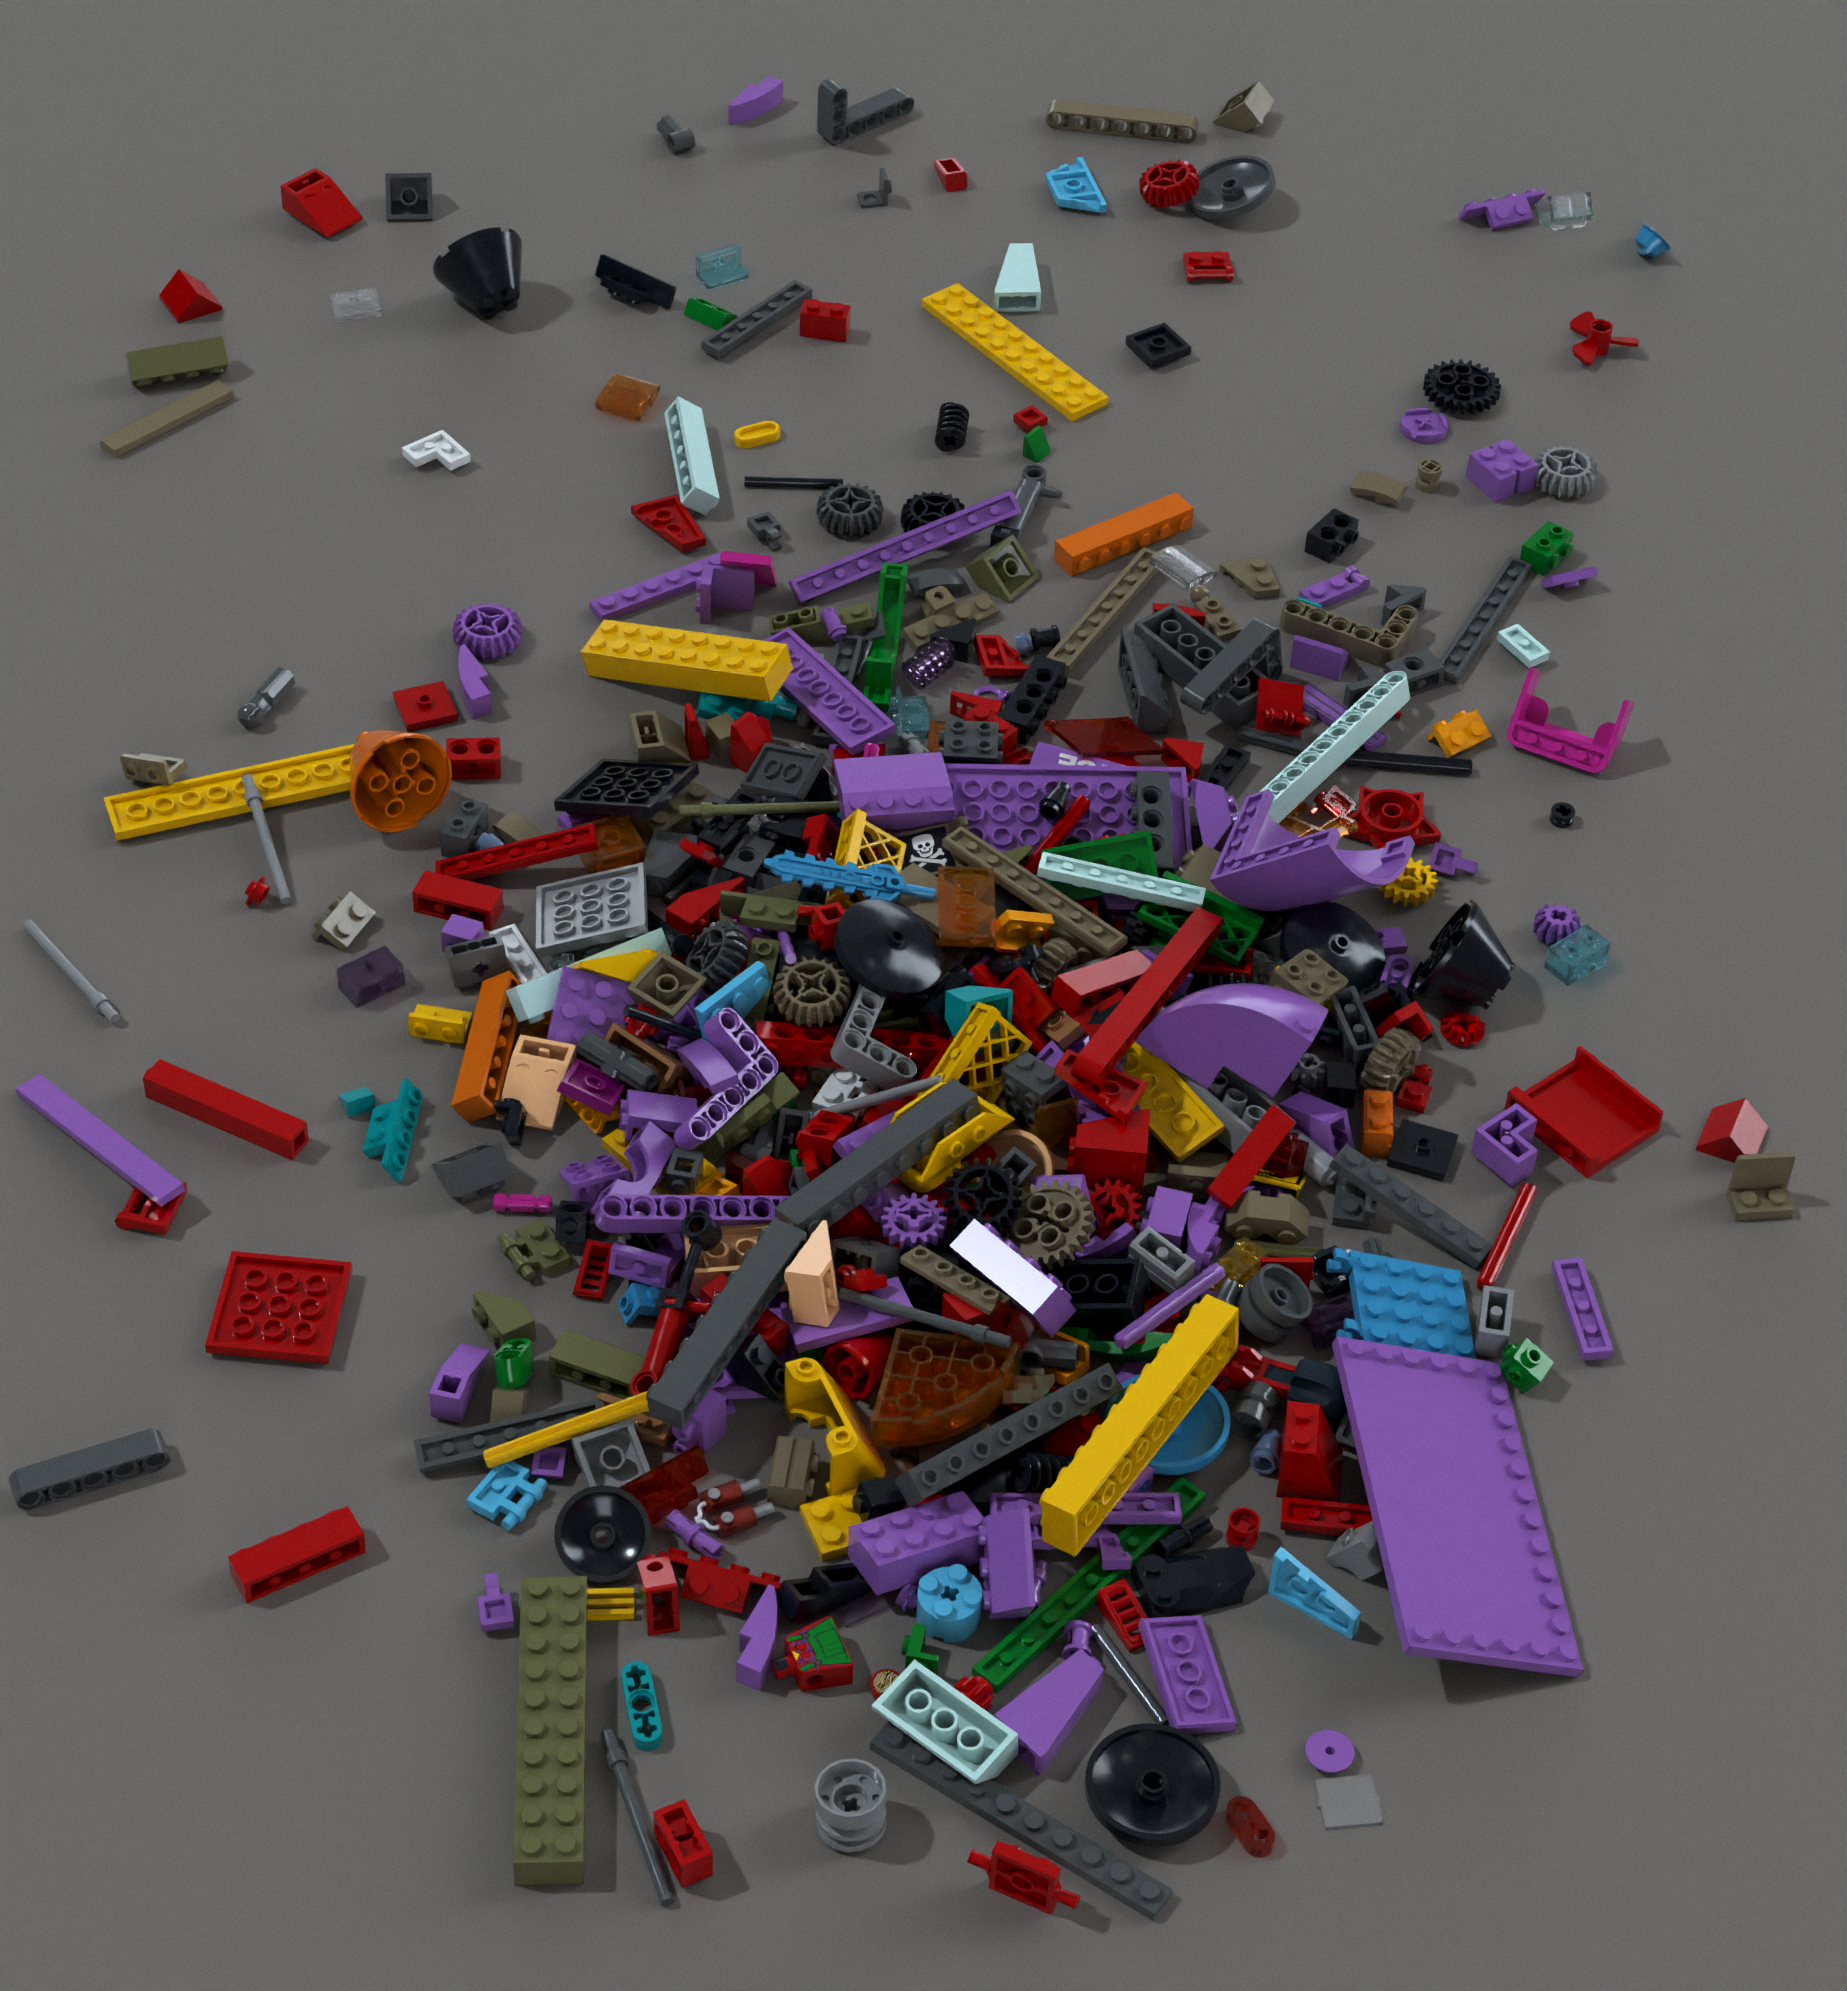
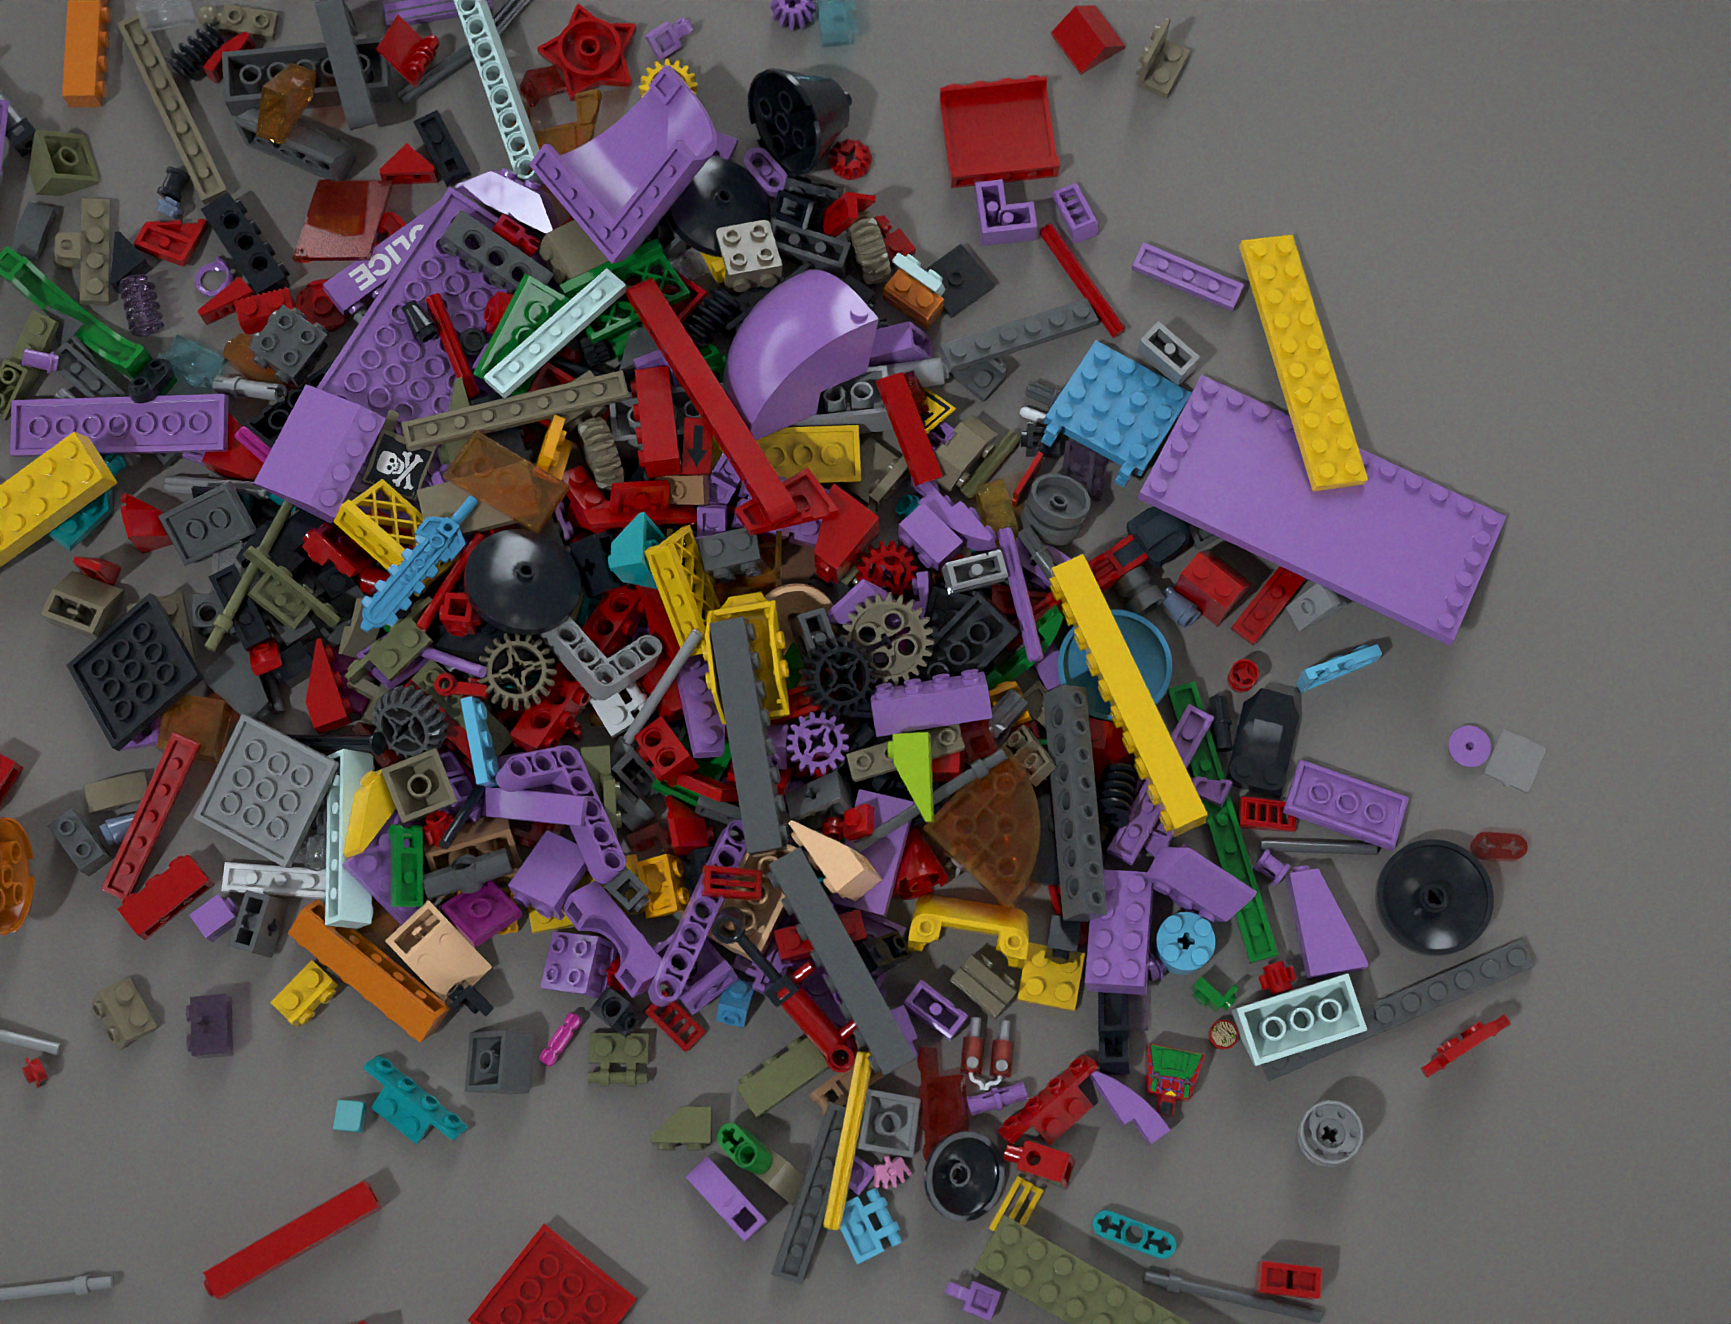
camera: 55 degrees left, 30 degrees up
(567, 1483) = (890, 1171): none -> bright pink piece
(591, 1012) = (406, 866): none -> green plate
(719, 734) = (110, 541): dark tan brick -> none
(731, 1221) = (707, 881): none -> red tile
(740, 1442) = (935, 1011): none -> medium lavender brick
(759, 833) = (283, 595): none -> olive bracket
(767, 955) = (462, 689): none -> red plate
(864, 683) = (150, 381): none -> black plate
(940, 1280) = (914, 764): none -> lime slope
(1025, 958) = (595, 479): black plate -> none
(1149, 595) = (196, 51): none -> black piece
(1163, 642) = (284, 102): none -> clear orange slope
(1184, 826) = (515, 235): none -> red plate
(1401, 1120) = (911, 266): none -> light aqua plate
(1524, 1364) = (1218, 365): green brick -> none
(1561, 1206) = (1083, 227): none -> medium lavender slope
(1578, 1427) = (1303, 363): none -> yellow plate

